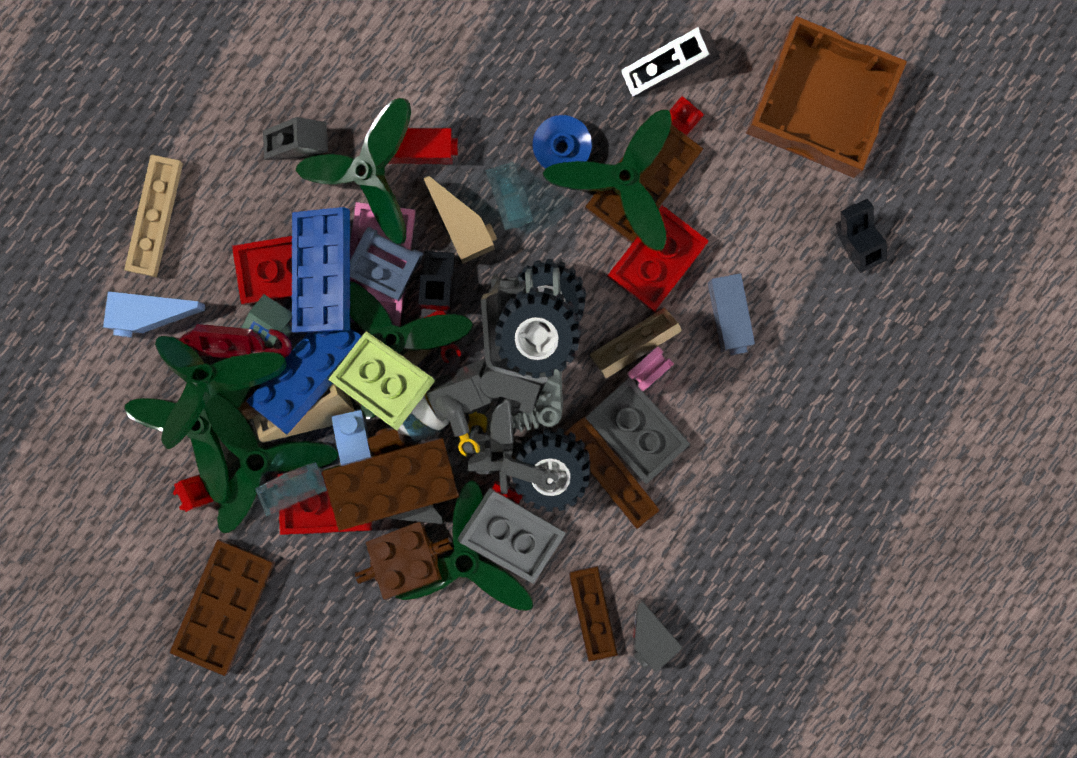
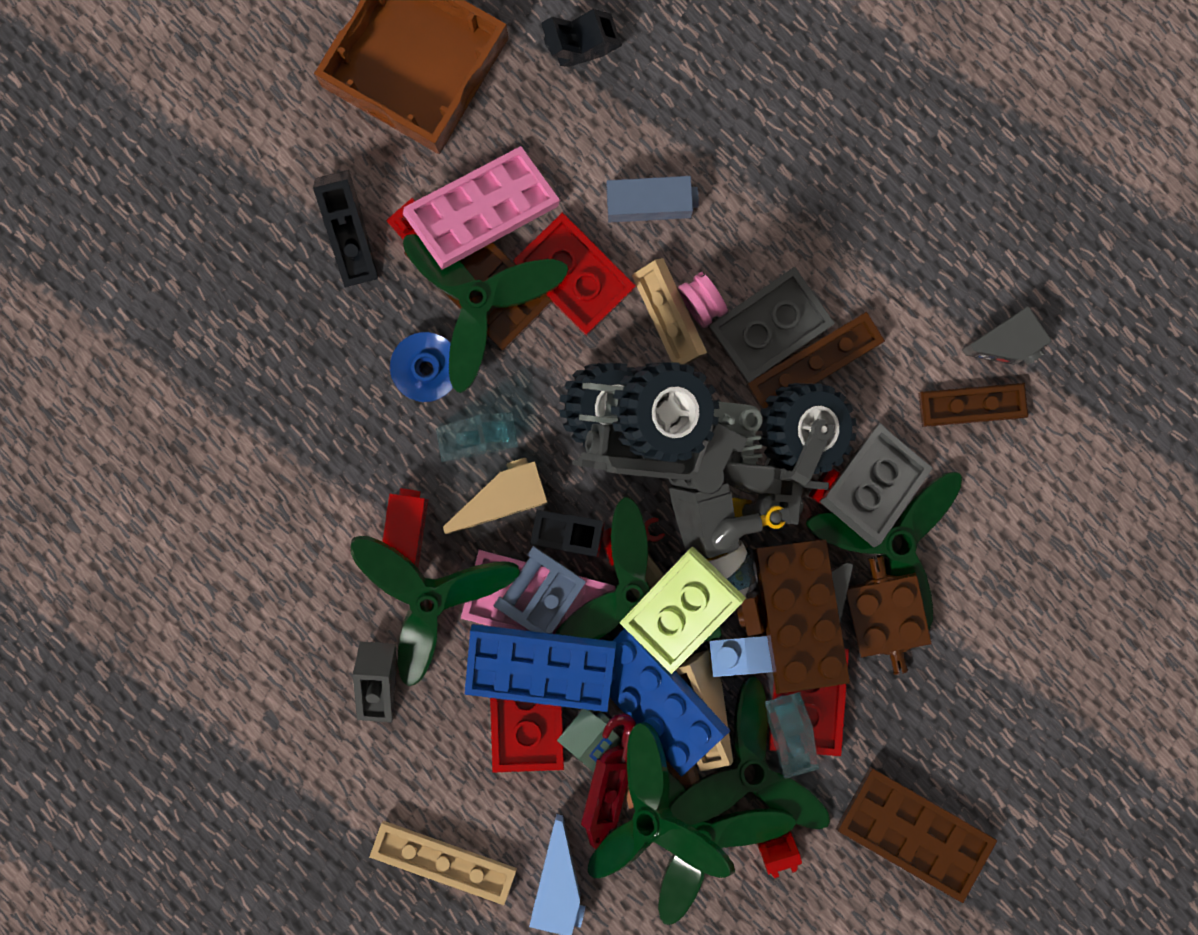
camera: 80 degrees left, 0 degrees up
(702, 171) = (481, 207): none -> bright pink plate

